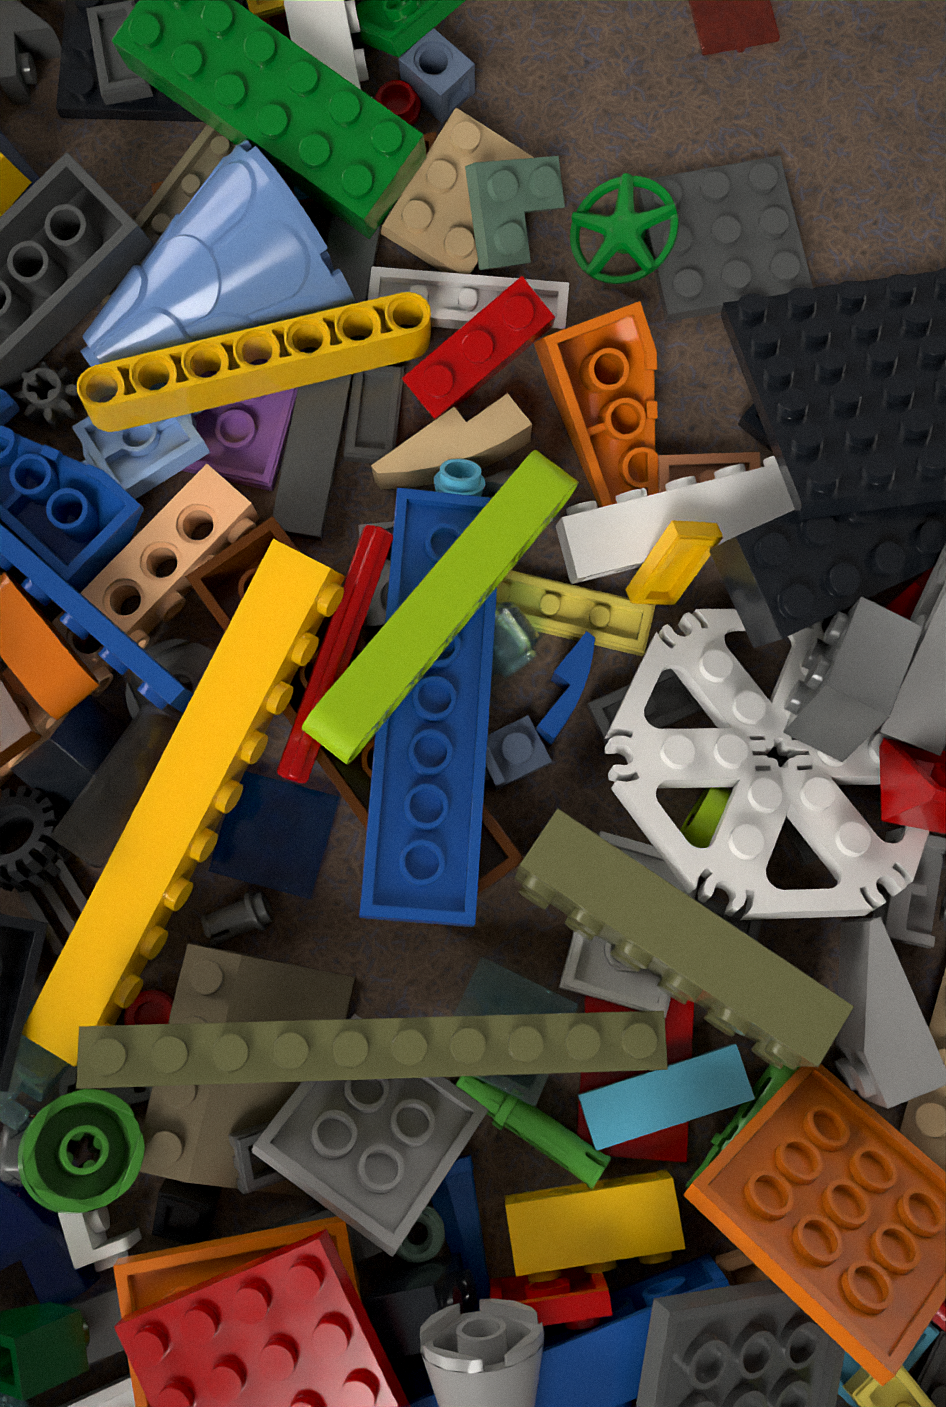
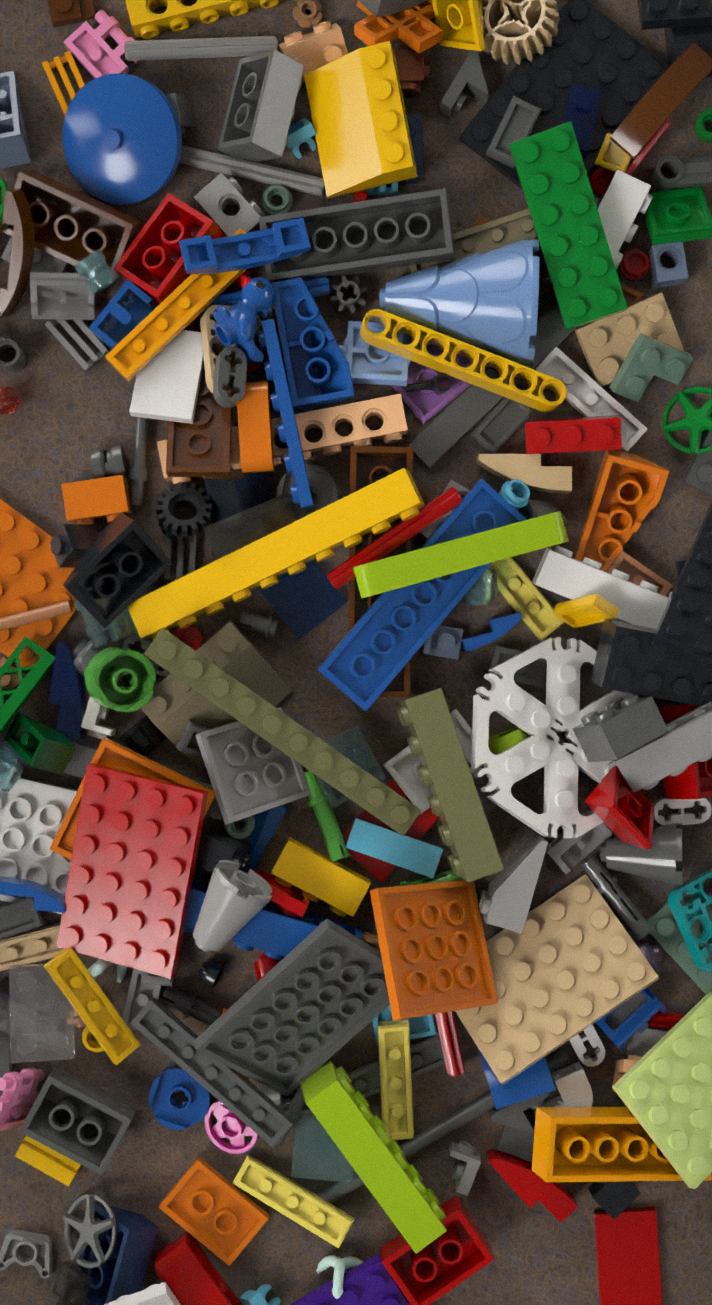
camera: 35 degrees right, 10 degrees up
(244, 427) = (429, 385): none -> black hand

